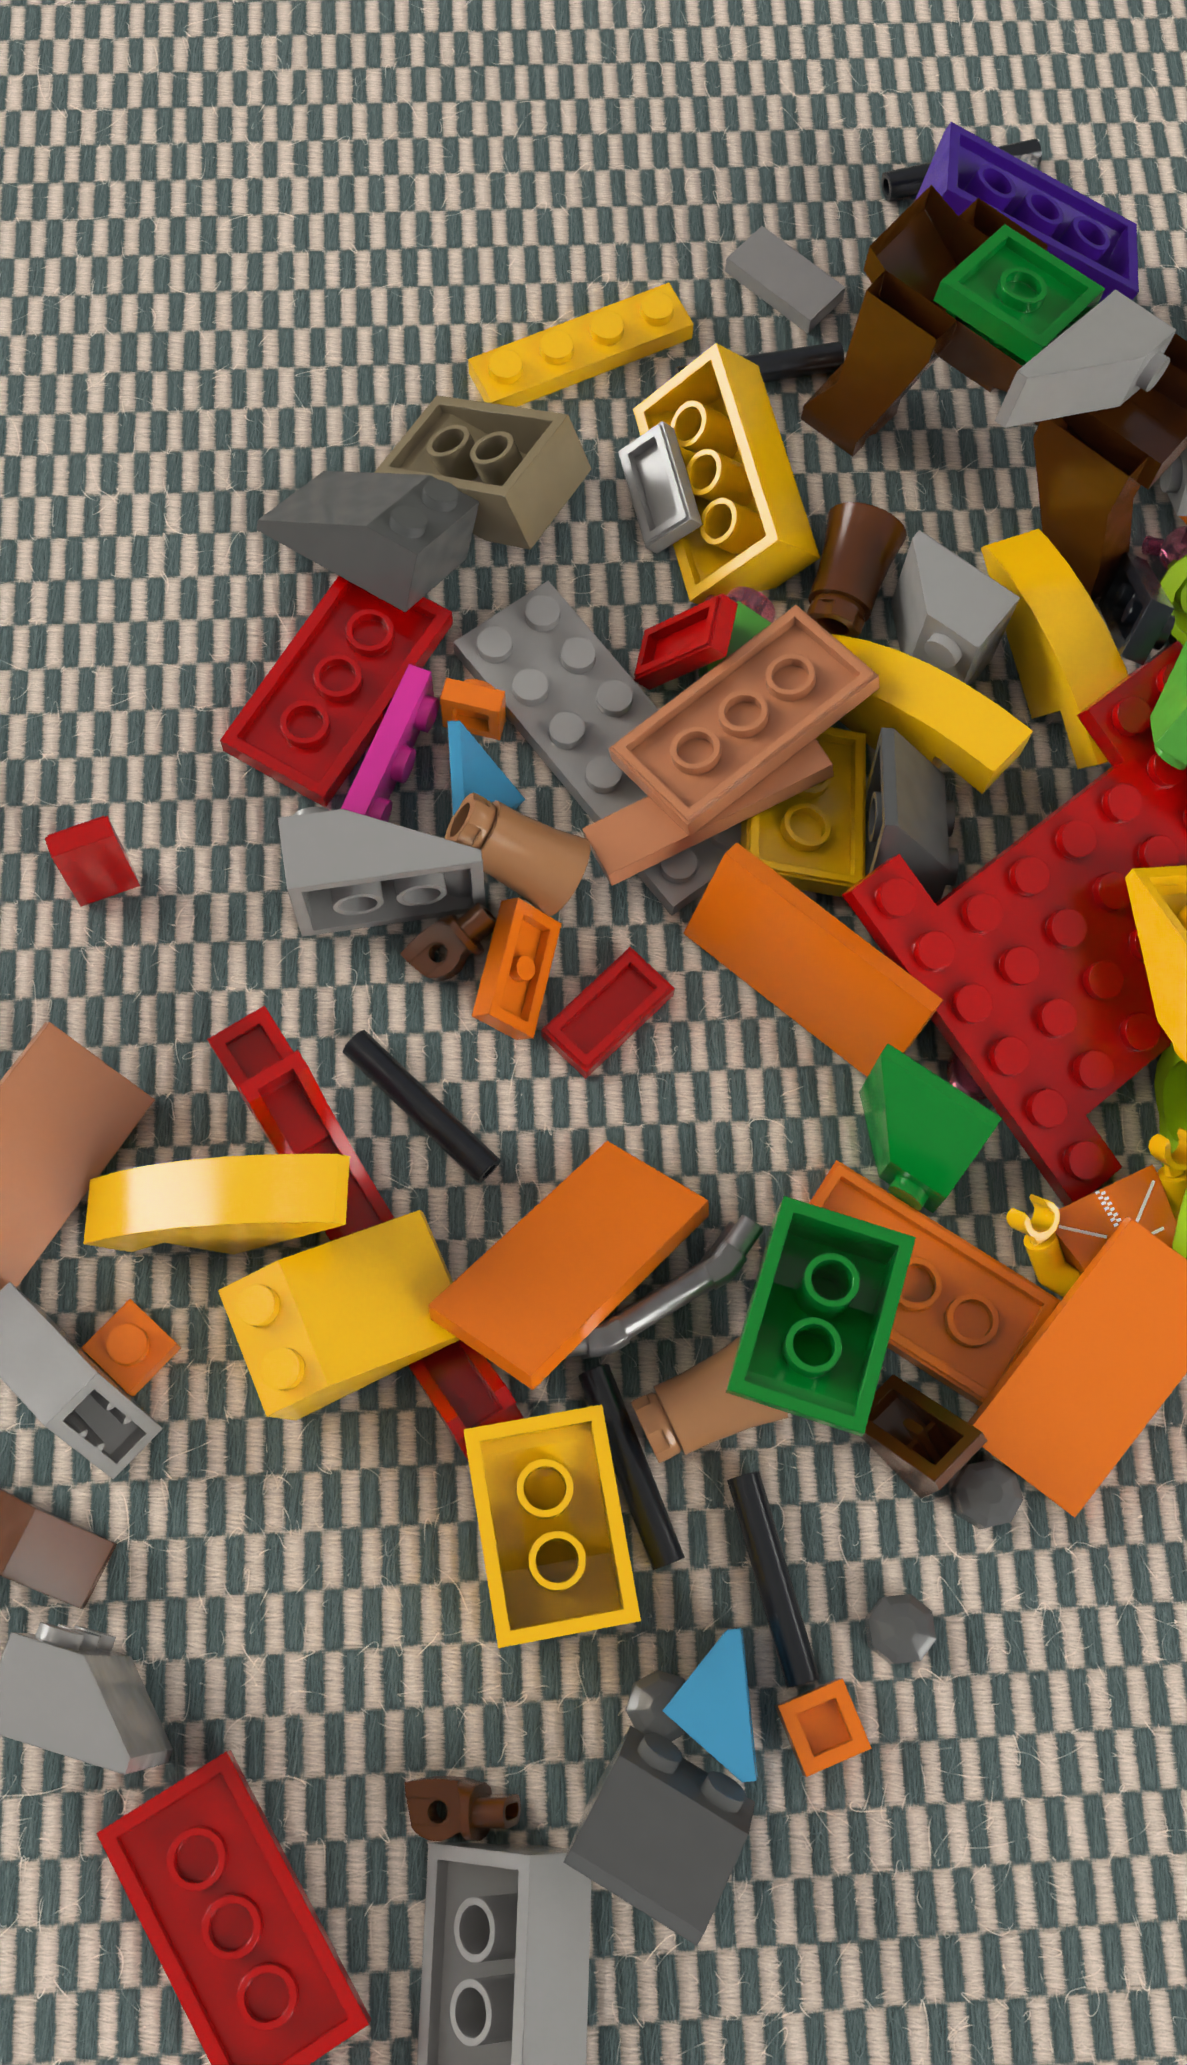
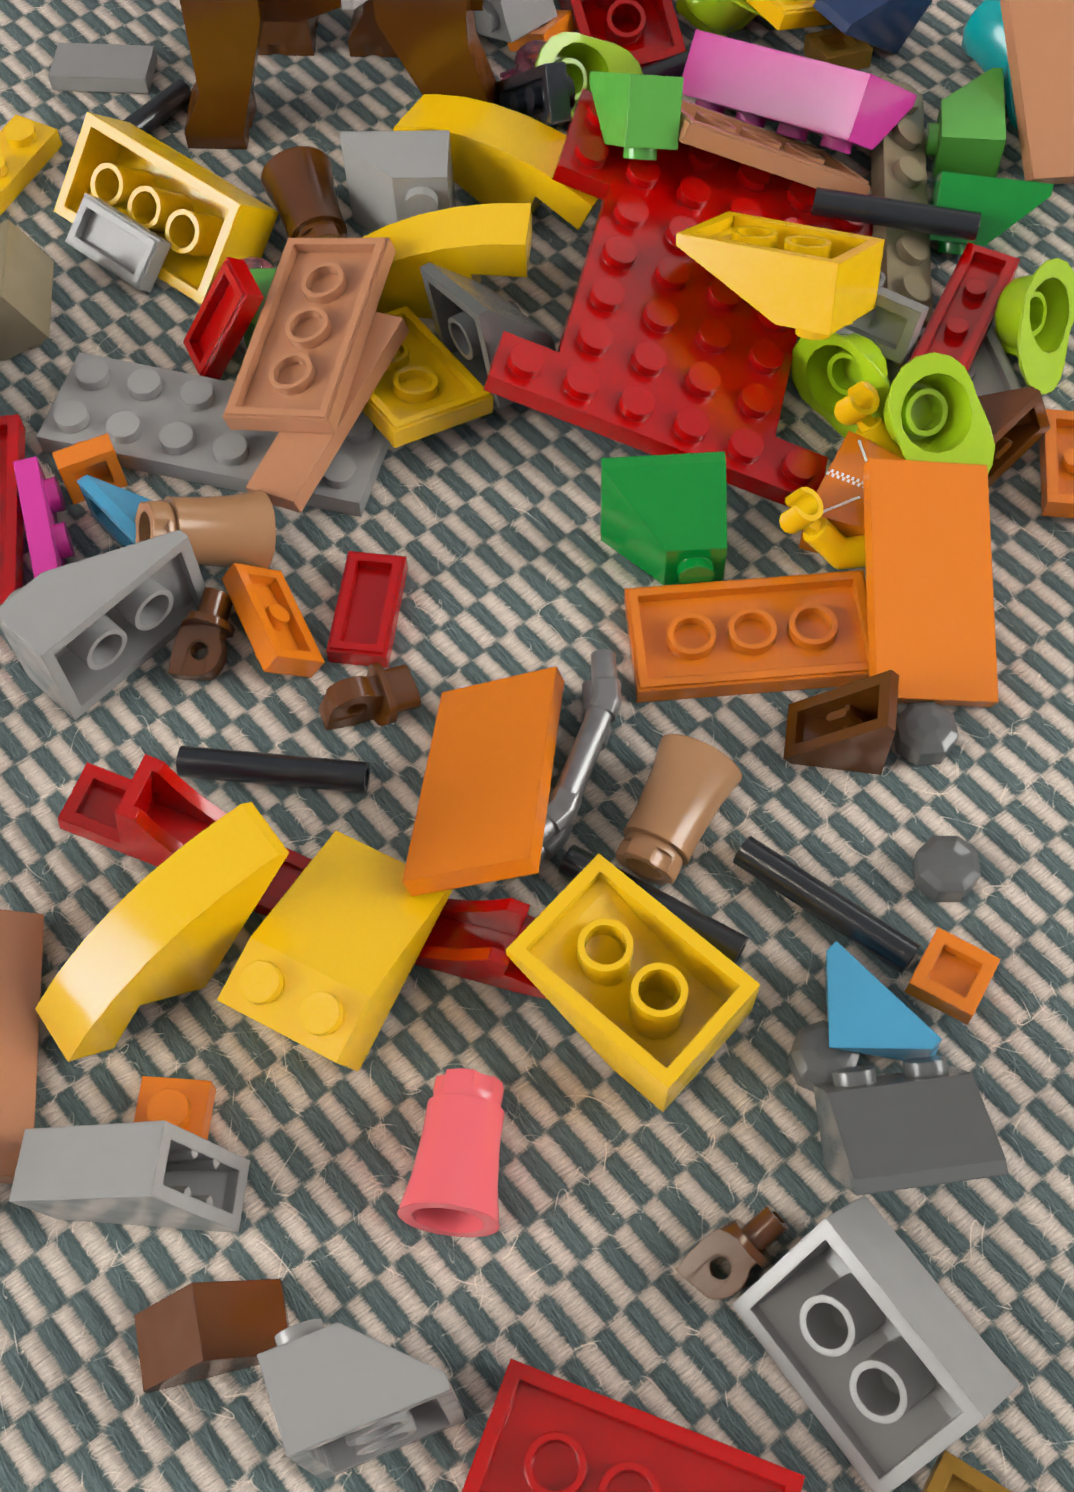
camera: 30 degrees left, 10 degrees down
(311, 1557) = (458, 1158): none -> coral plant
(556, 1105) = (370, 697): none -> reddish brown piece
(808, 962) = (491, 463): orange tile -> none
(821, 1315) = (706, 672): green slope -> none

